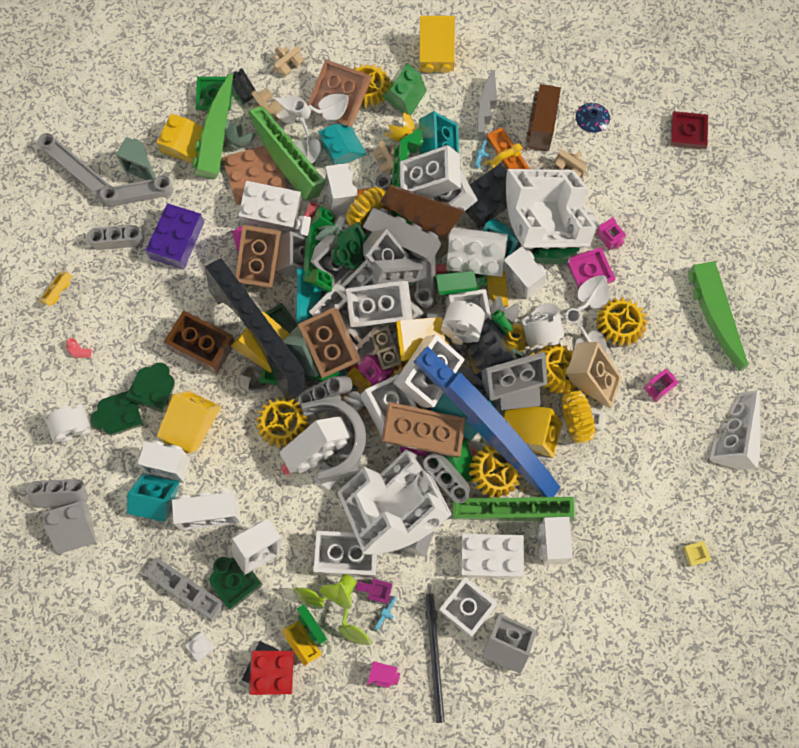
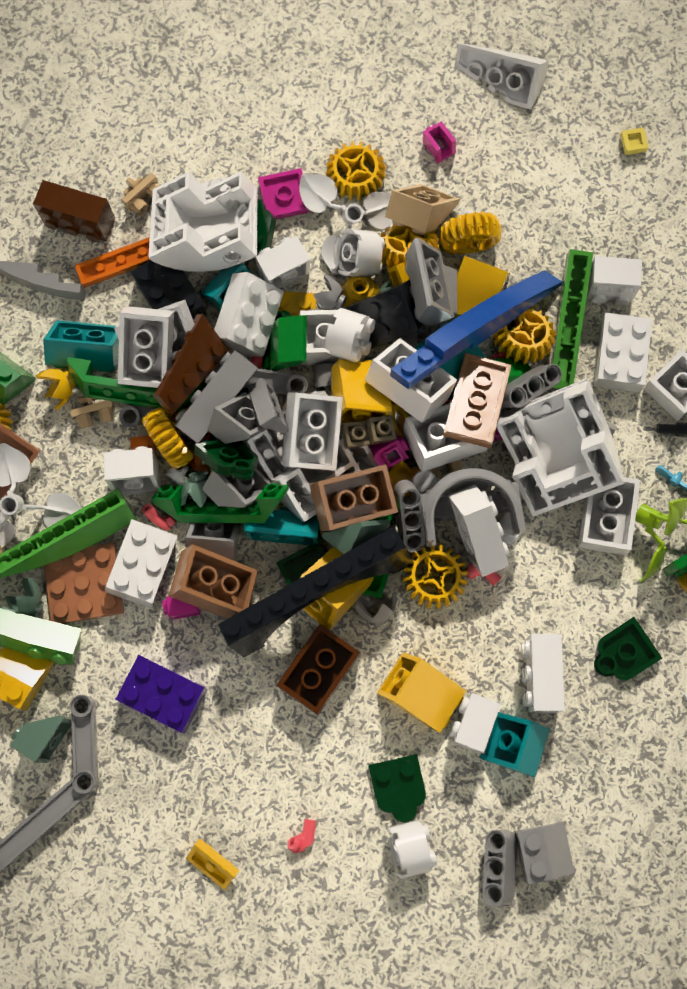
camera: 80 degrees left, 5 degrees up
(107, 235) = (144, 764): light grey beam -> none
(152, 387) = (369, 737): dark green plate -> none
(185, 589) = (631, 712): light grey slope -> none
(256, 546) = (596, 617): white brick -> none
(302, 225) = (175, 523): white plate -> none
(341, 144) = (62, 467): teal slope -> none
(378, 590) = (650, 485): magenta plate -> none
(481, 153) = (104, 296): medium azure piece -> none
(499, 318) = (343, 298): green pin -> none
(515, 150) = (118, 269): yellow arm -> none
(592, 123) = (77, 168): dark blue dish -> none
(611, 234) = (243, 161): dark pink window -> none
(689, 130) = (117, 54): dark red plate -> none
(717, 311) = (356, 67): bright green slope -> none

